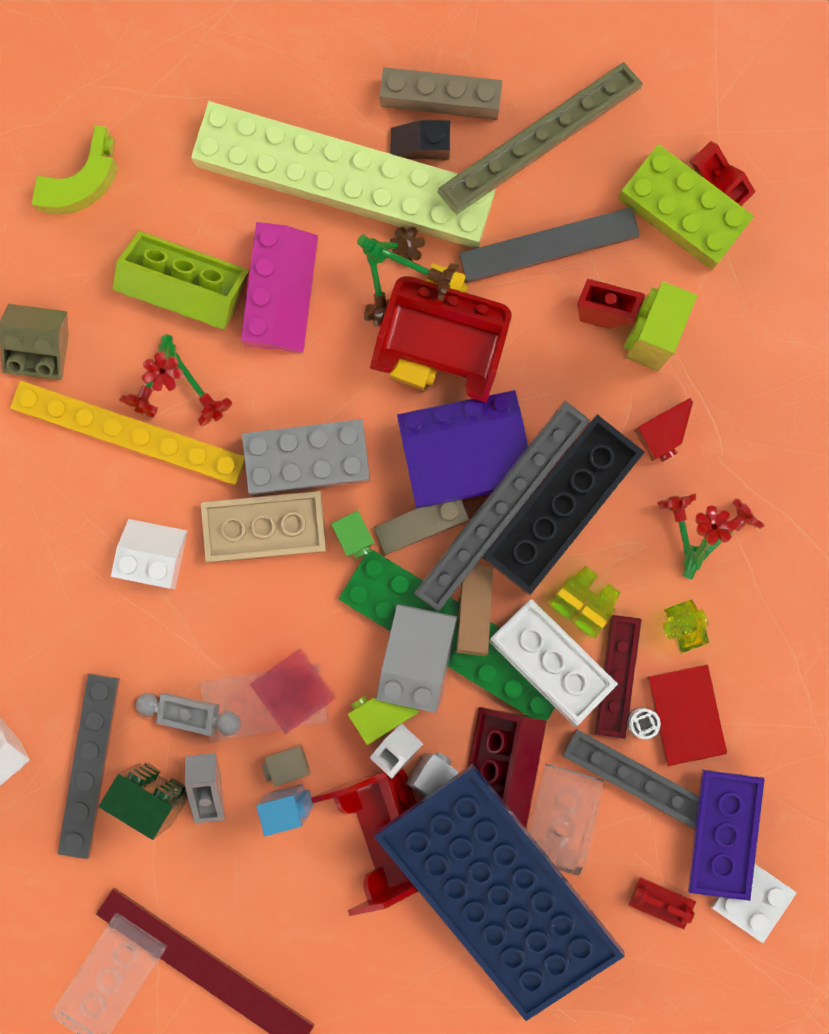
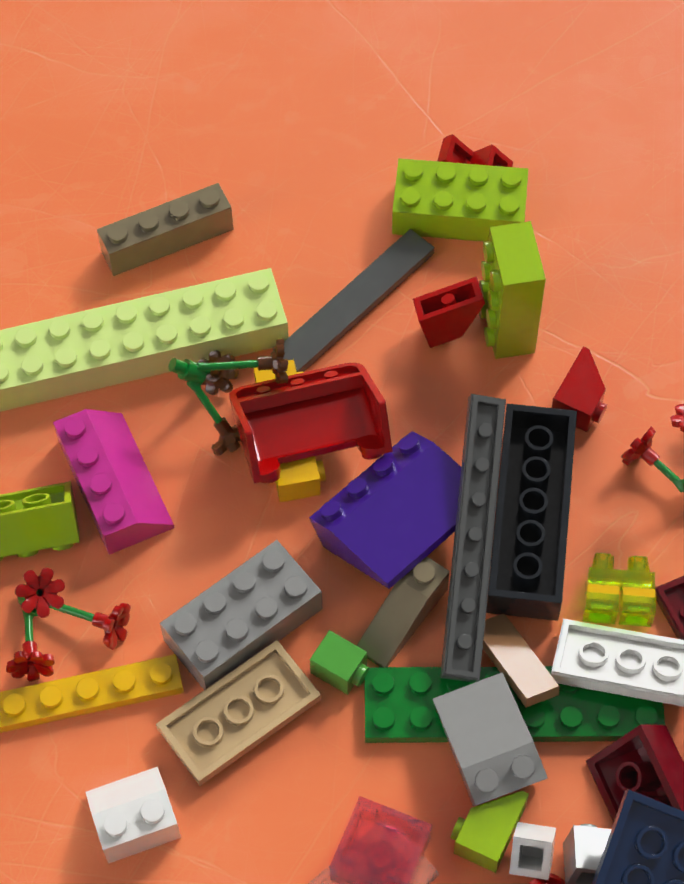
camera: 40 degrees left, 25 degrees down
(421, 140) = (174, 270): black slope -> none
(539, 138) = (283, 214): olive tile -> none

